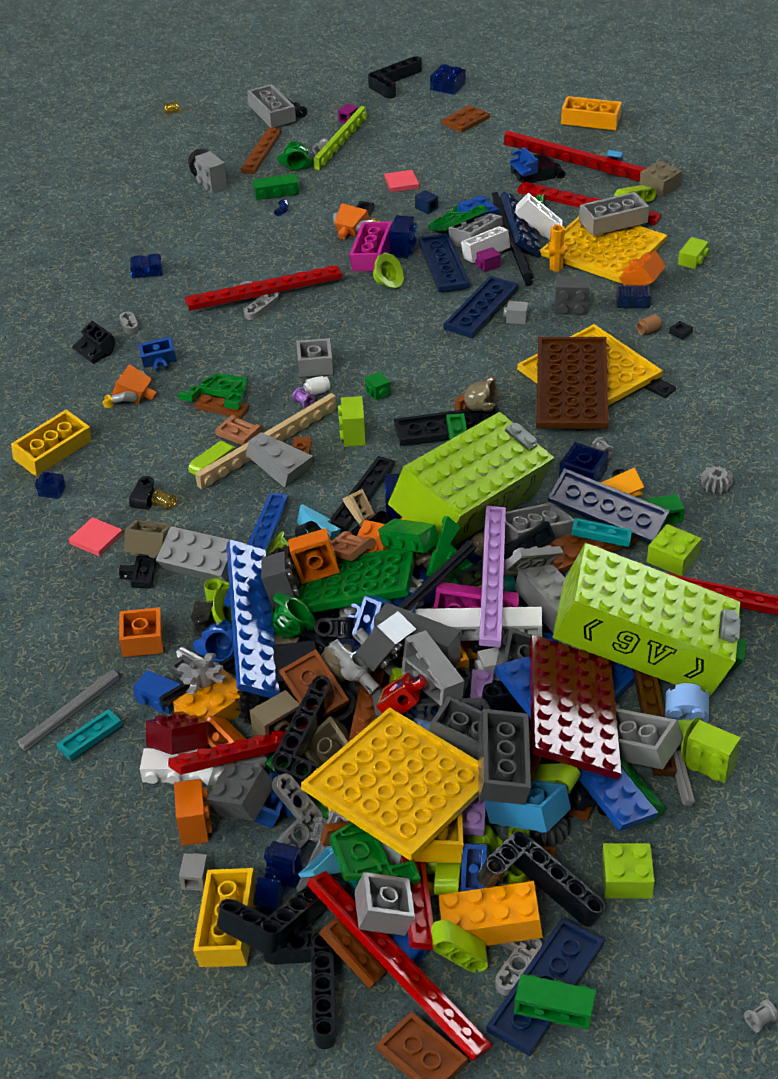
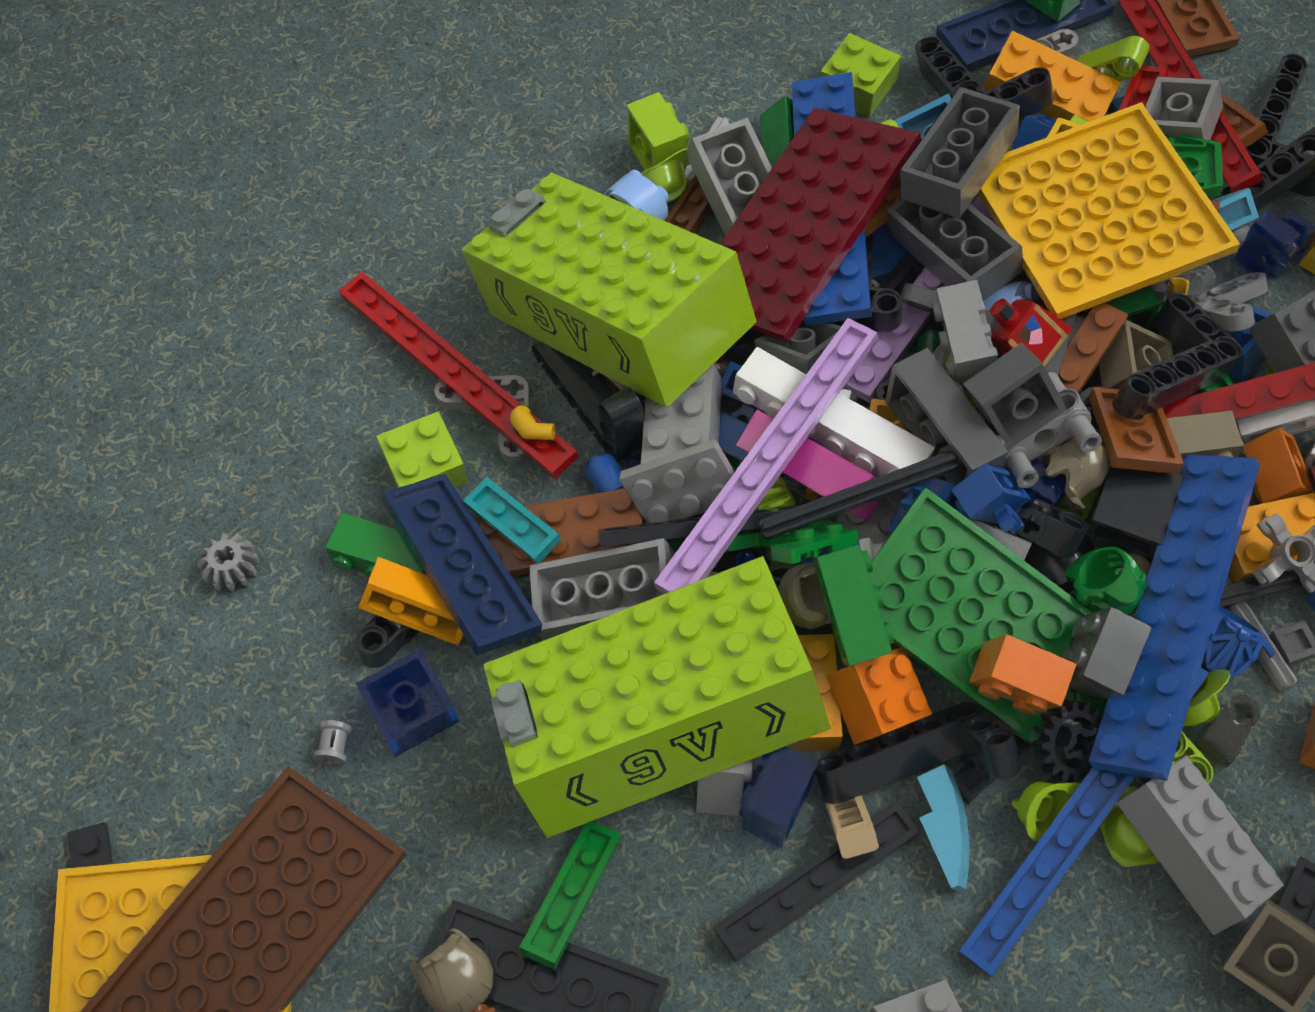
camera: 150 degrees left, 20 degrees up
(351, 546) = (951, 683): nougat plate -> none

